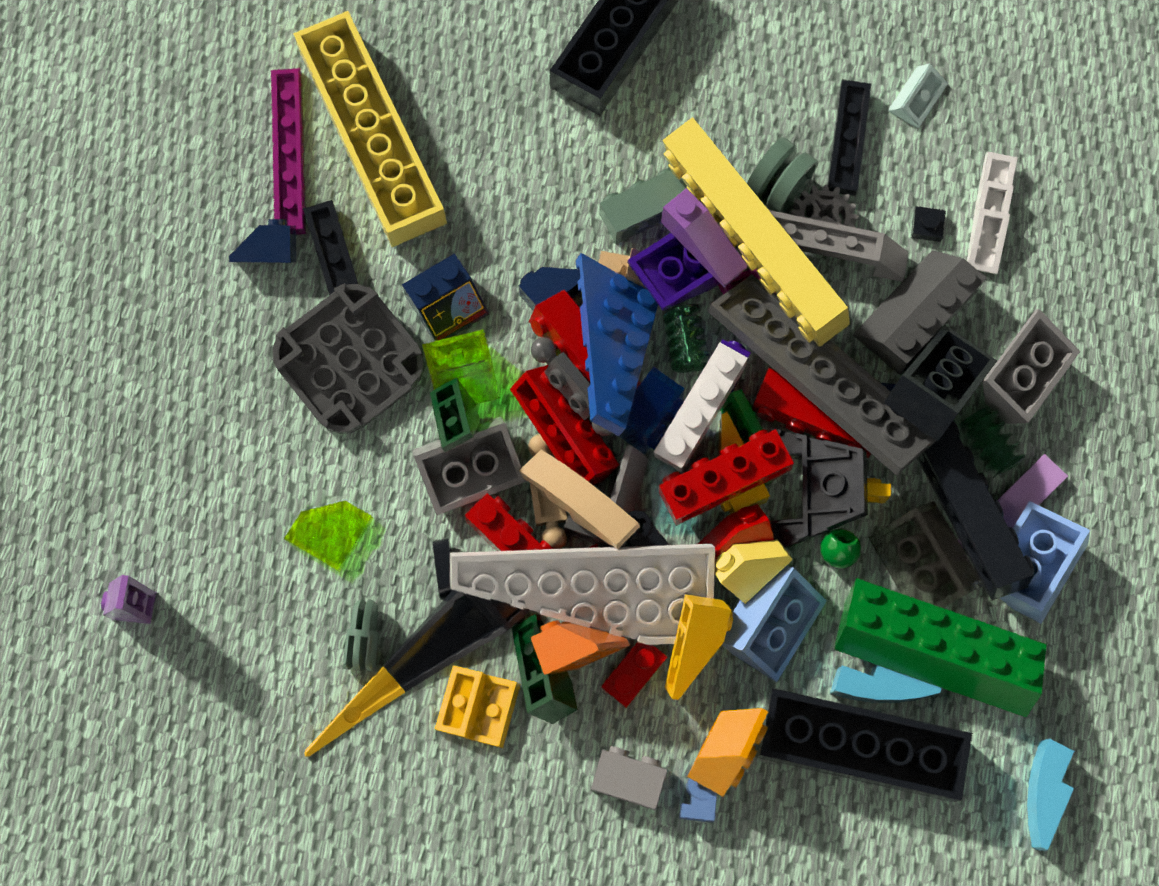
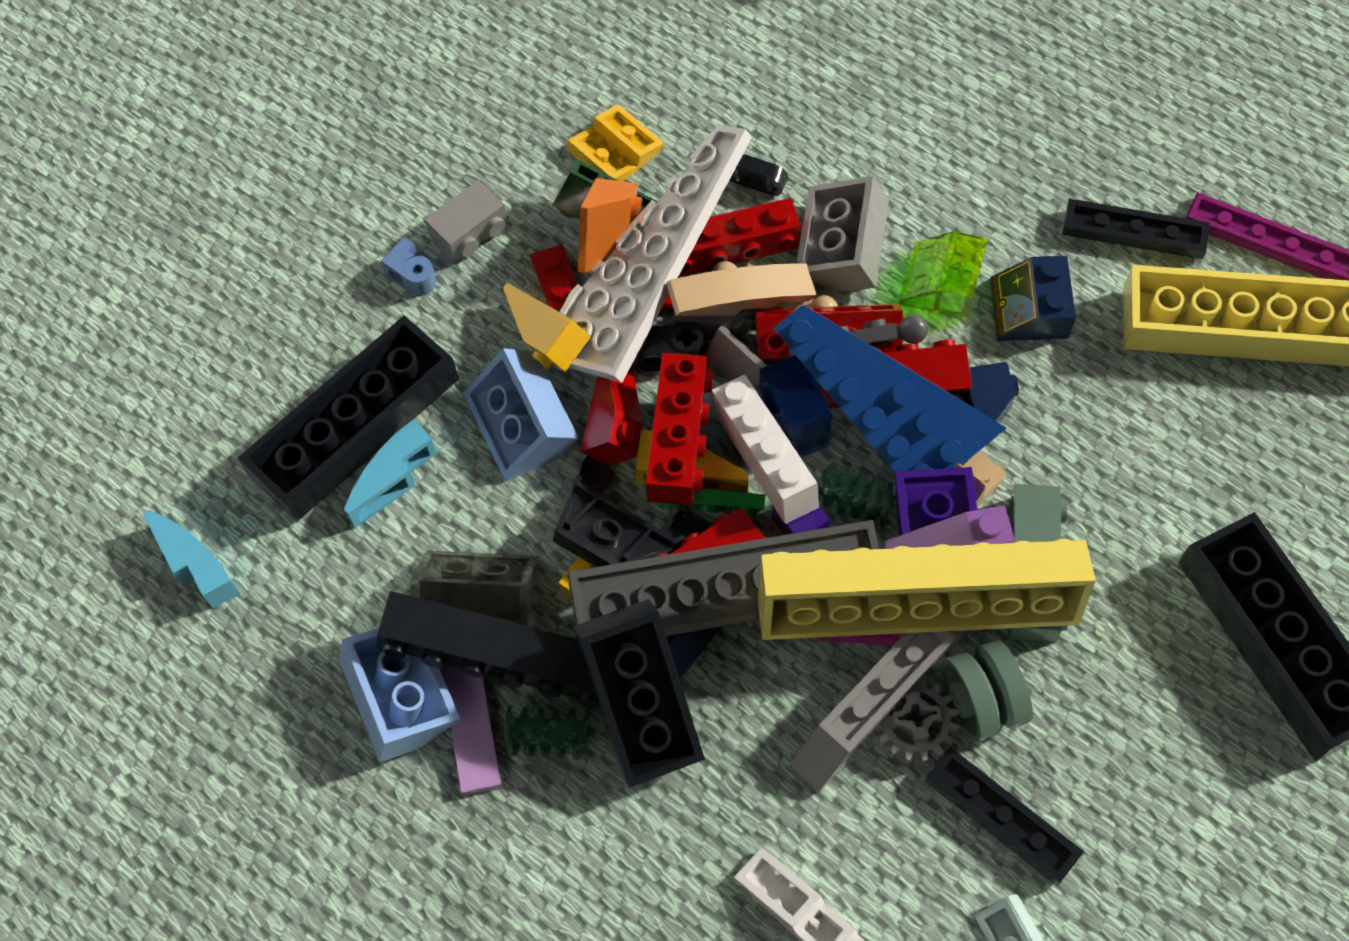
camera: 125 degrees right, 10 degrees down
(268, 244) = (1180, 176): dark blue slope -> none
(329, 532) = (851, 107): clear neon green plate -> none
(348, 358) = (1018, 188): dark grey tile -> none
(362, 637) = (736, 86): sand green arm -> none
(448, 634) = (686, 110): black plate -> none
(454, 414) = (895, 232): dark green slope -> none
(729, 749) = (429, 295): light orange slope -> none
(750, 566) = (577, 406): light yellow slope -> none
(840, 548) = (535, 506): green piece -> none
(919, 308) = (744, 757): dark grey slope -> none
(928, 224) = (842, 840): black plate -> none
(942, 647) = (382, 535): green brick -> none
(1028, 370) = (596, 812): light grey slope -> none

